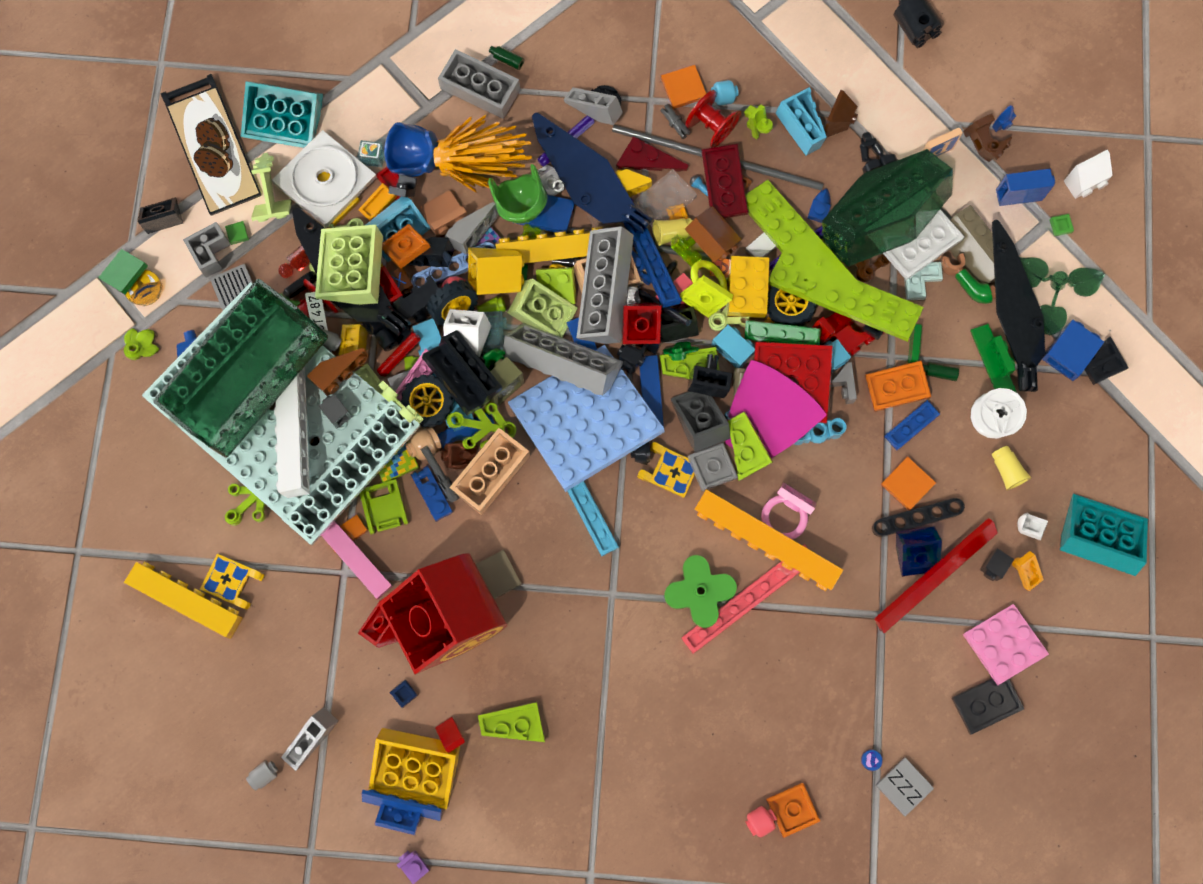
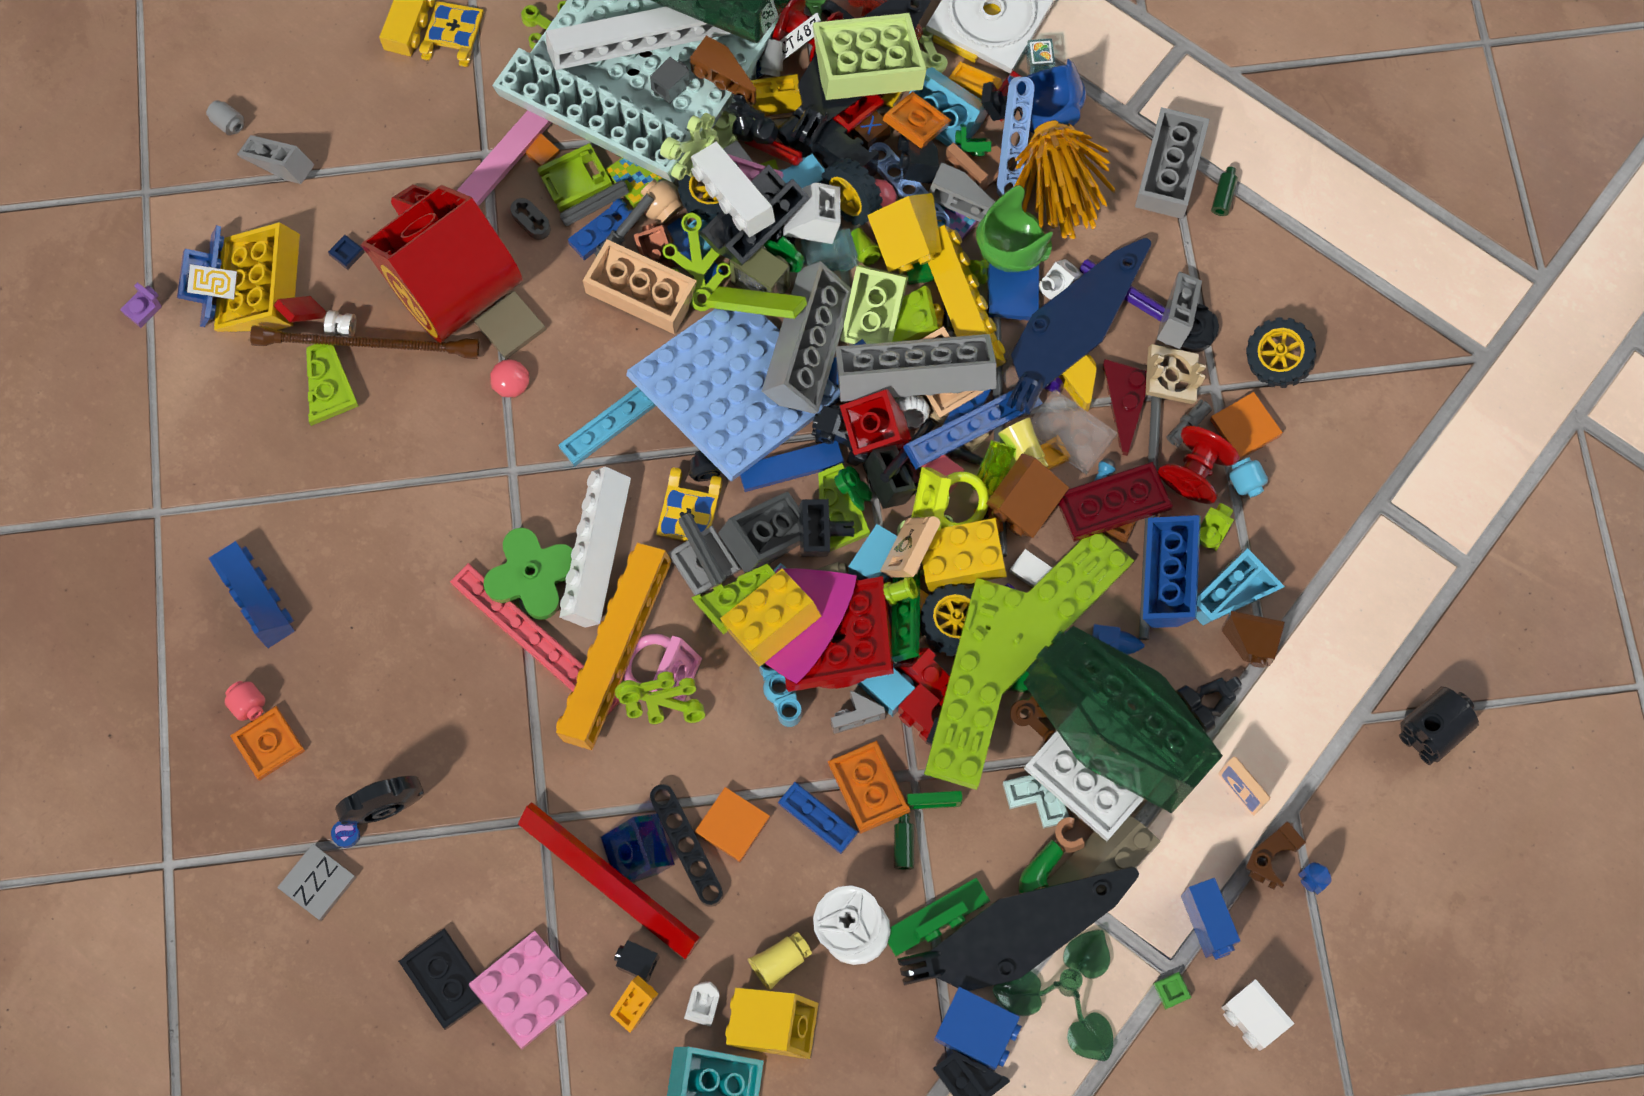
camera: 80 degrees right, 5 degrees down
(378, 364) = (747, 129): none -> black piece
(410, 495) = (594, 203): none -> dark grey axle
(410, 803) = (211, 281): none -> white sticker
(413, 549) = (527, 222): none -> dark grey beam
(430, 180) = (1011, 126): none -> light blue beam
(432, 213) = (975, 146): none -> green bracket
(442, 381) = (732, 189): none -> white brick
(467, 706) = (340, 324): none -> white wheel
(467, 765) = (265, 336): none -> reddish brown hose
(527, 387) = (756, 302): none -> lime tile
(539, 583) = (509, 378): none -> coral hair
(630, 130) = (1154, 371): none -> tan piece
(649, 35) = (1283, 328): none -> black wheel
(676, 805) = (252, 595): none -> blue wedge
(691, 540) = (594, 547): none -> white brick
(707, 465) = (701, 550): none -> dark grey axle
(738, 313) = (910, 546): none -> light nougat container
(768, 332) = (900, 590): none -> lime bush
(773, 423) = (770, 617): none -> yellow brick
(785, 152) = (1171, 571): none -> blue slope
(816, 501) = (631, 692): none -> lime plant
(862, 726) = (379, 800): none -> black piece
(1052, 482) = (772, 1022): none -> yellow slope

